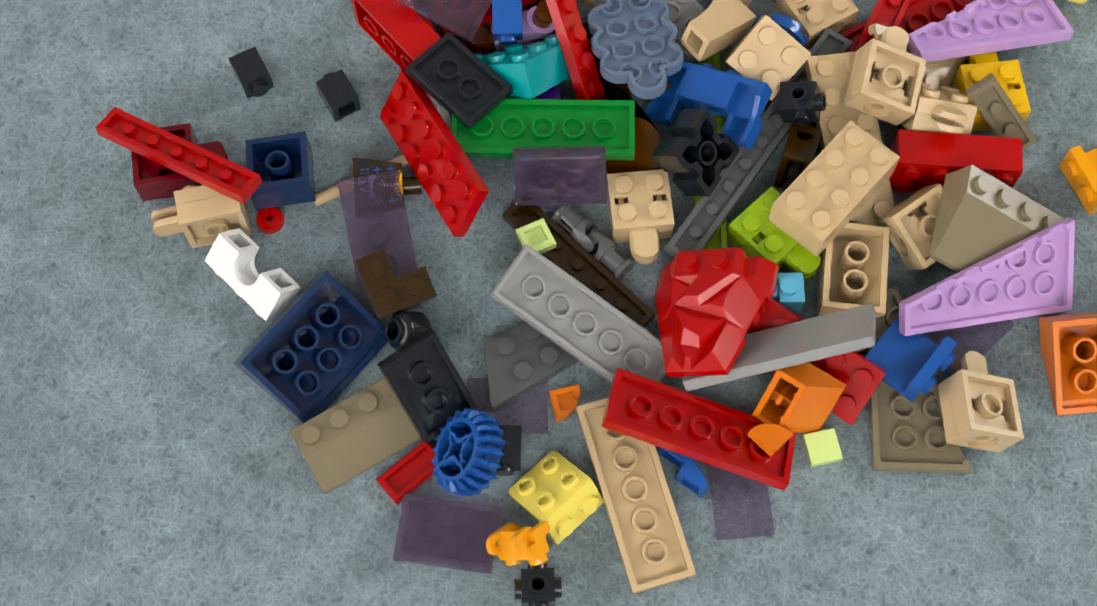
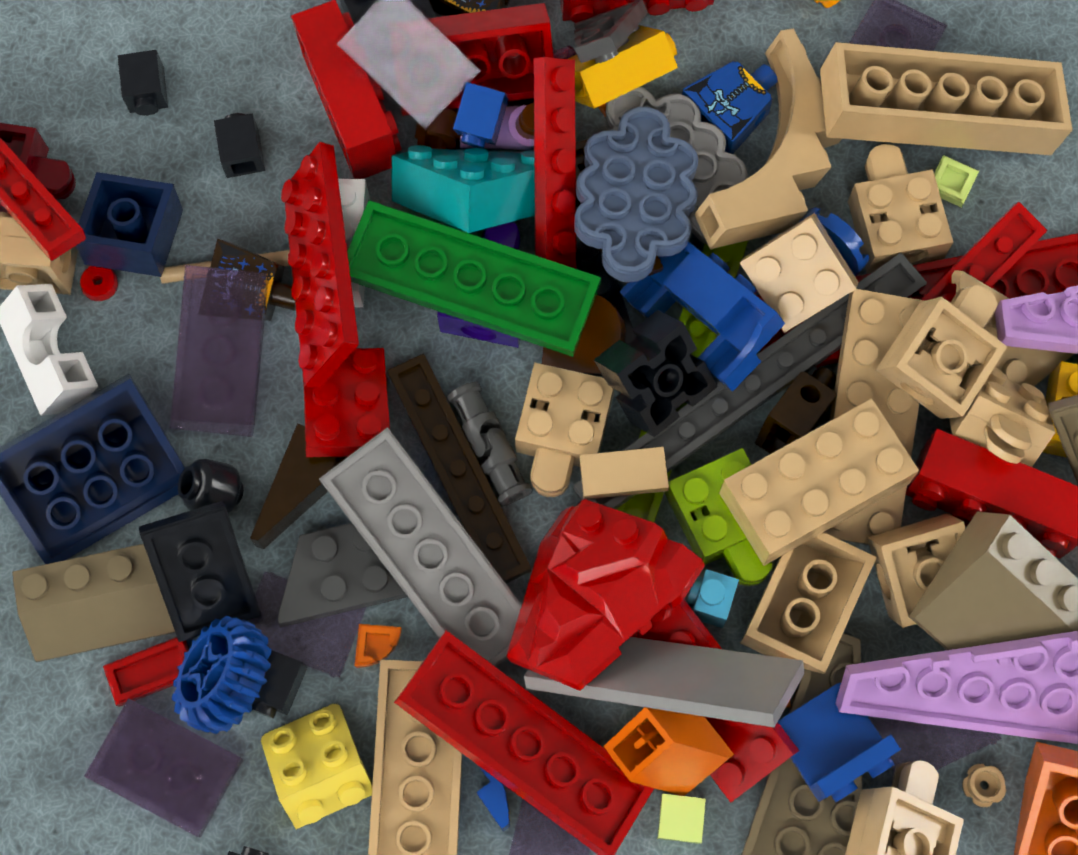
camera: 20 degrees right, 5 degrees up
(389, 292) = (200, 428): dark brown brick -> none
(459, 80) = (384, 180): black tile -> none
(470, 306) = (293, 489): none -> dark brown slope
(486, 247) = (348, 406): none -> red plate
(520, 544) = (242, 820): light orange piece -> none
(536, 236) = (414, 417): yellowish green tile -> none
(560, 175) = (469, 347): clear purple plate -> none
(698, 226) = (623, 473): none -> tan tile
(770, 437) = (612, 786): orange tile -> none
(800, 102) = (820, 348): black brick -> none
(1021, 352) = (995, 780): none -> tan plate

